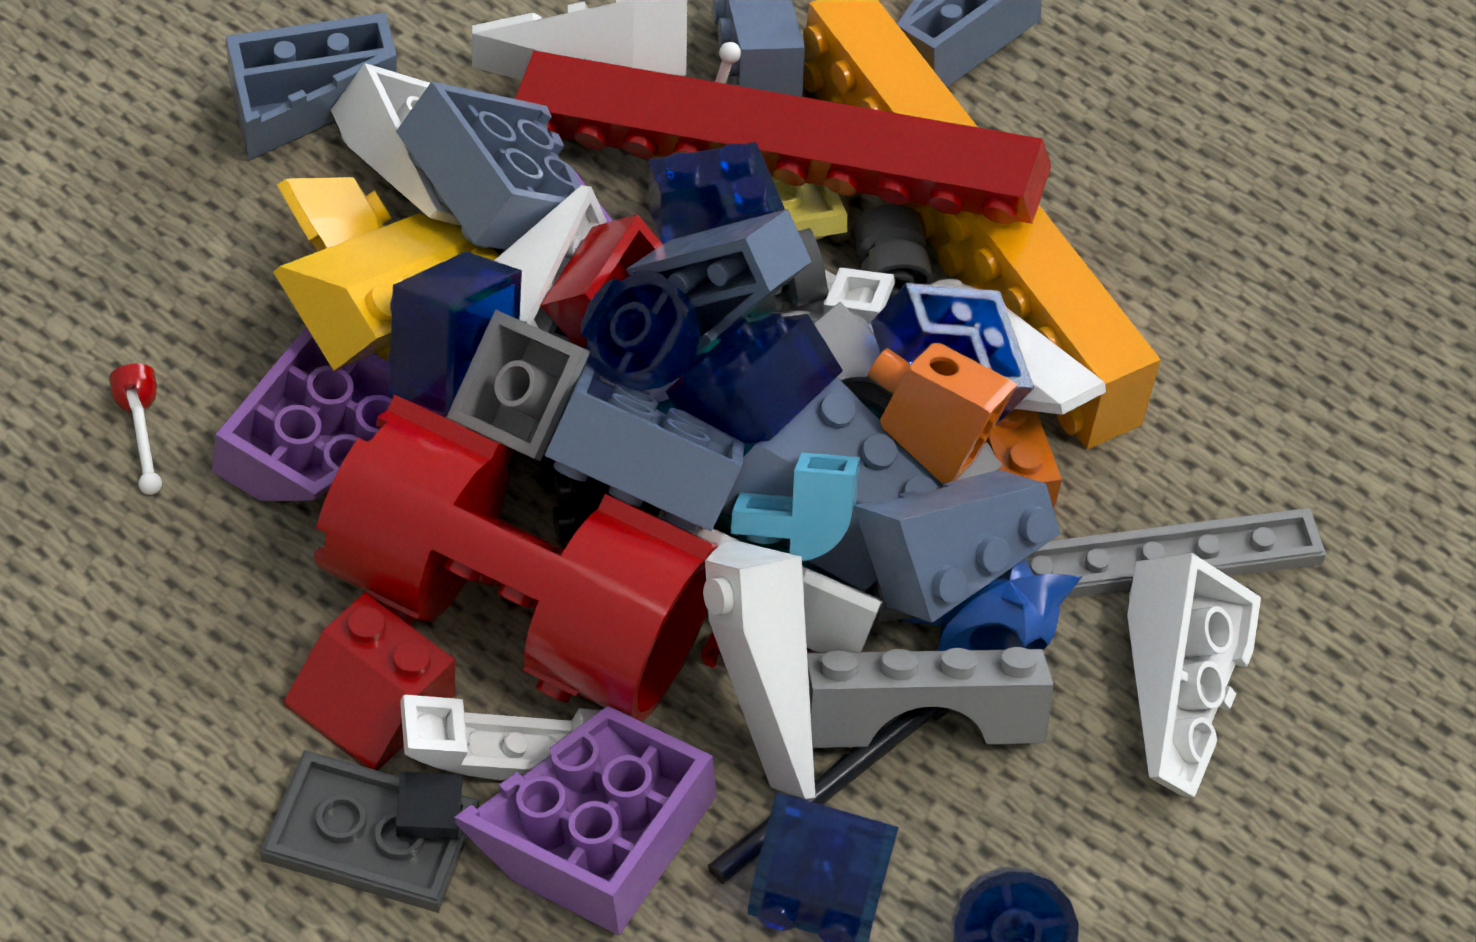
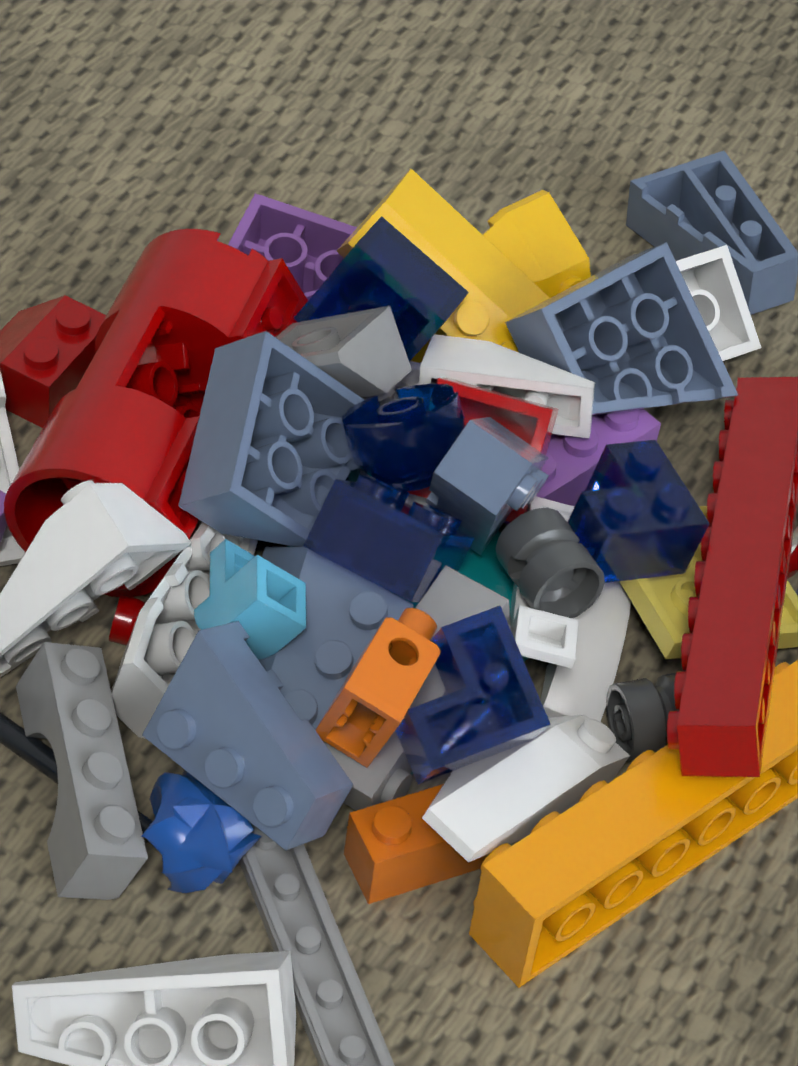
camera: 80 degrees right, 5 degrees down
(134, 391) = (325, 172): hinge -> none

